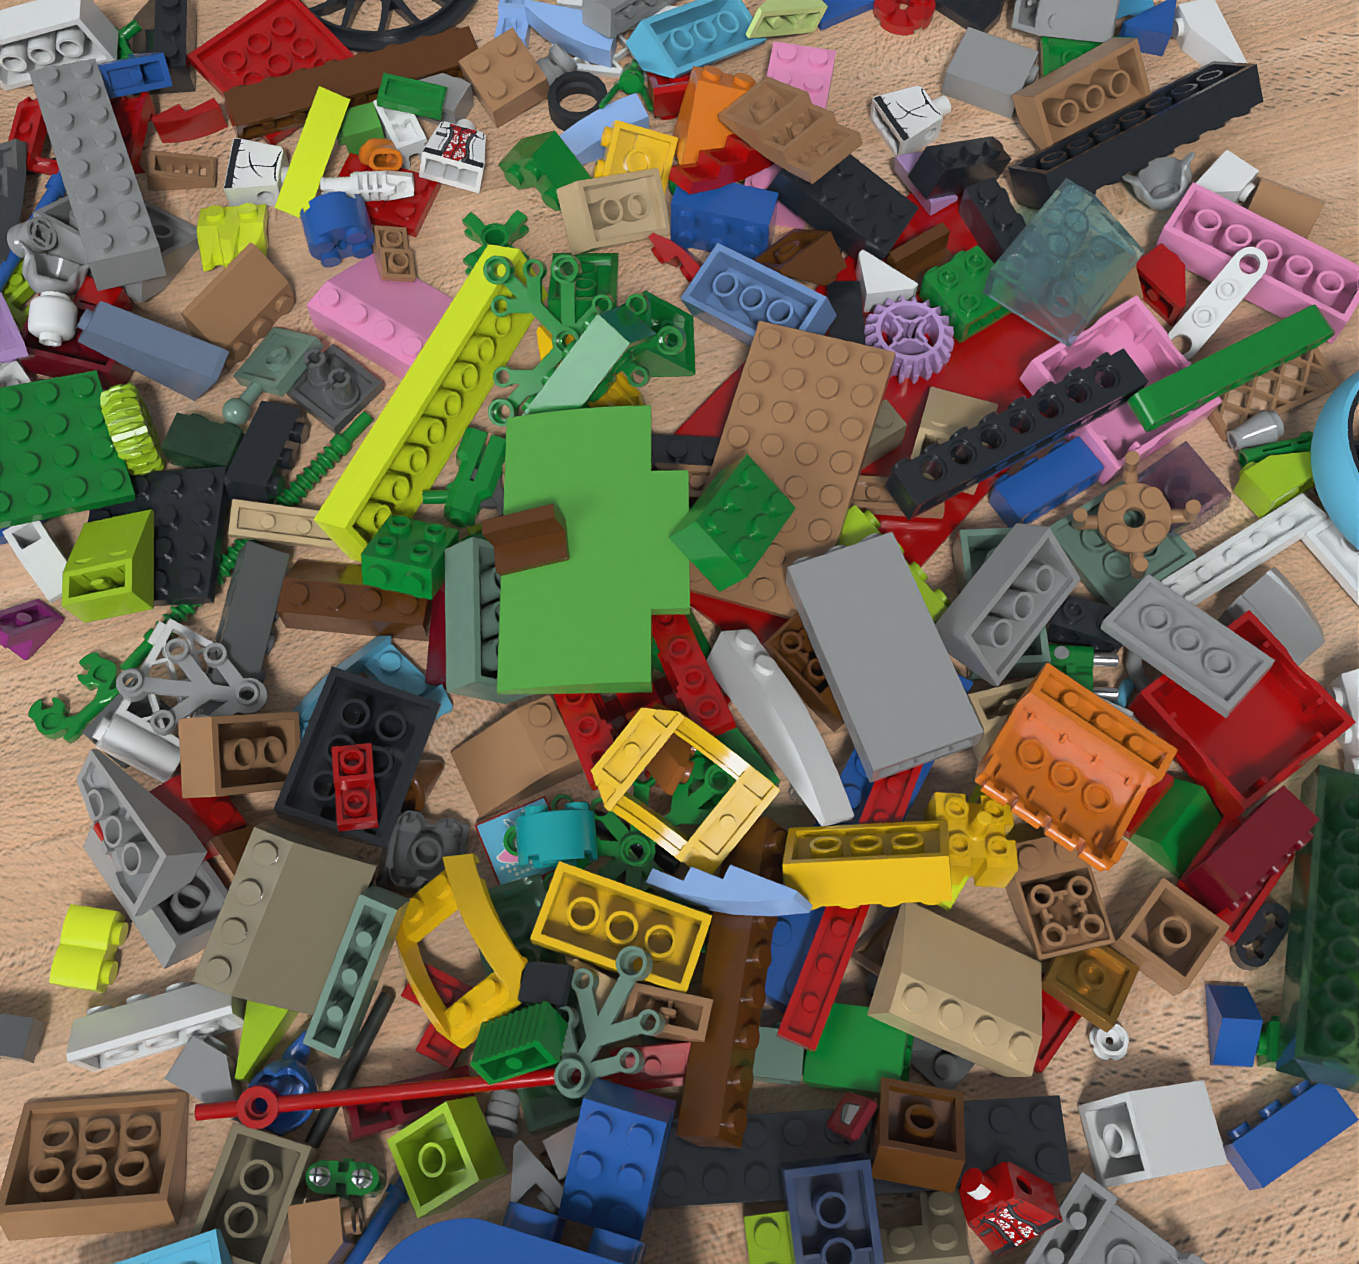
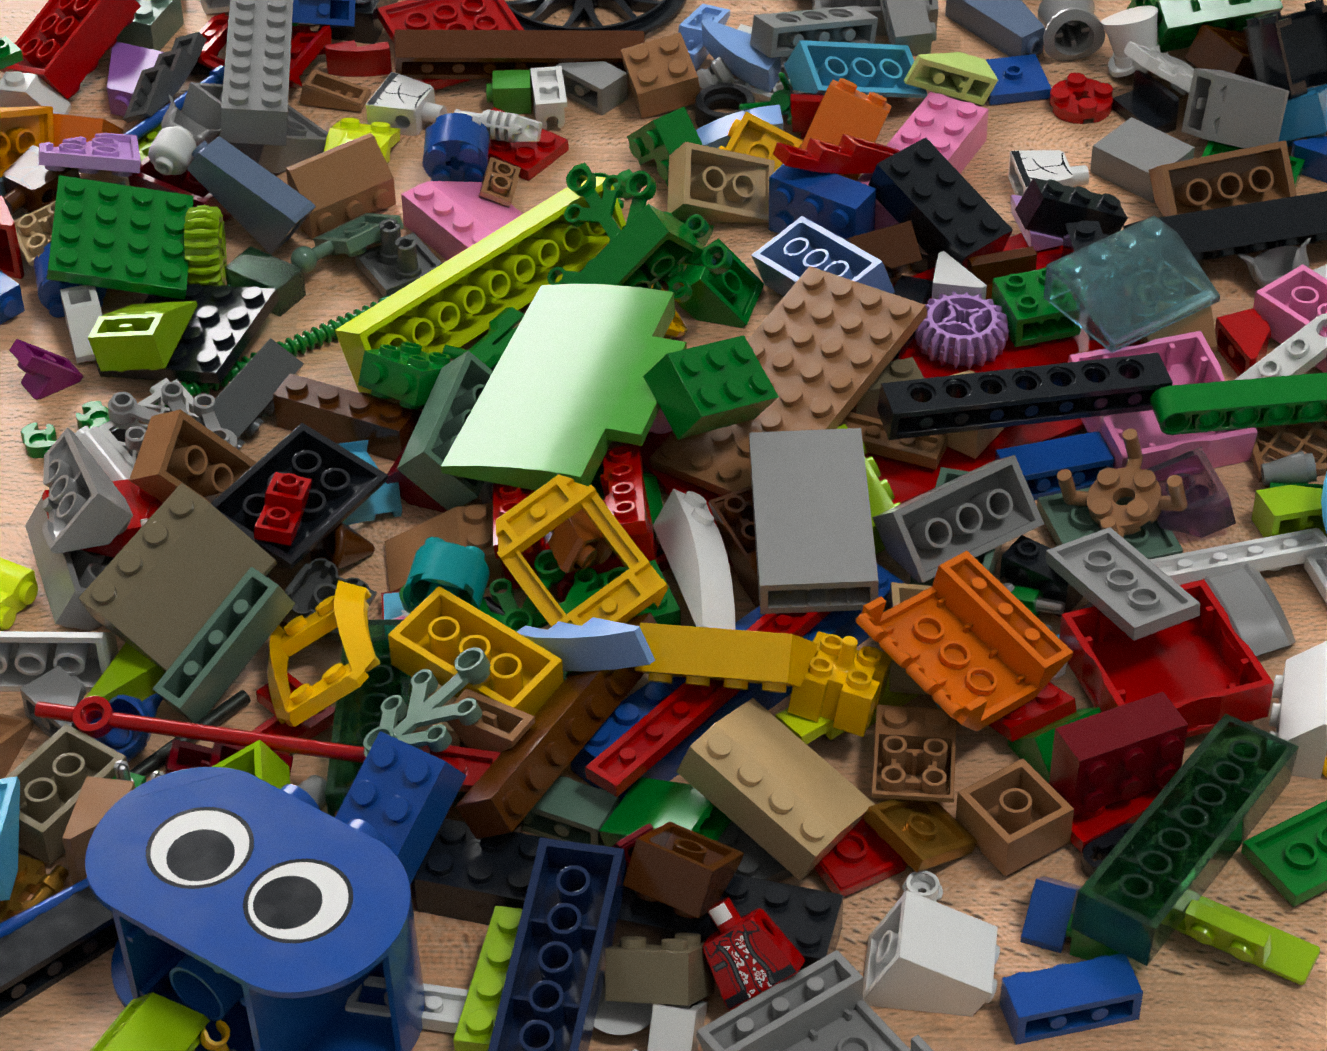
camera: 20 degrees right, 25 degrees down
(35, 233) = (186, 97): light grey wheel -> none
(266, 453) = (315, 292): black brick -> none
(277, 525) = (304, 342): tan plate -> none
(312, 152) = (459, 88): neon yellow slope -> none
(380, 155) = (519, 103): orange piece -> none
(412, 96) = (567, 69): green tile -> none
(455, 156) = (587, 122): white torso -> none
(519, 1043) = (343, 707): green brick -> none
(527, 539) = (516, 358): reddish brown panel -> none
(546, 983) = (386, 678): black slope -> none
(675, 254) = (759, 226): red slope -> none
(790, 129) = (900, 132): medium nougat slope -> none

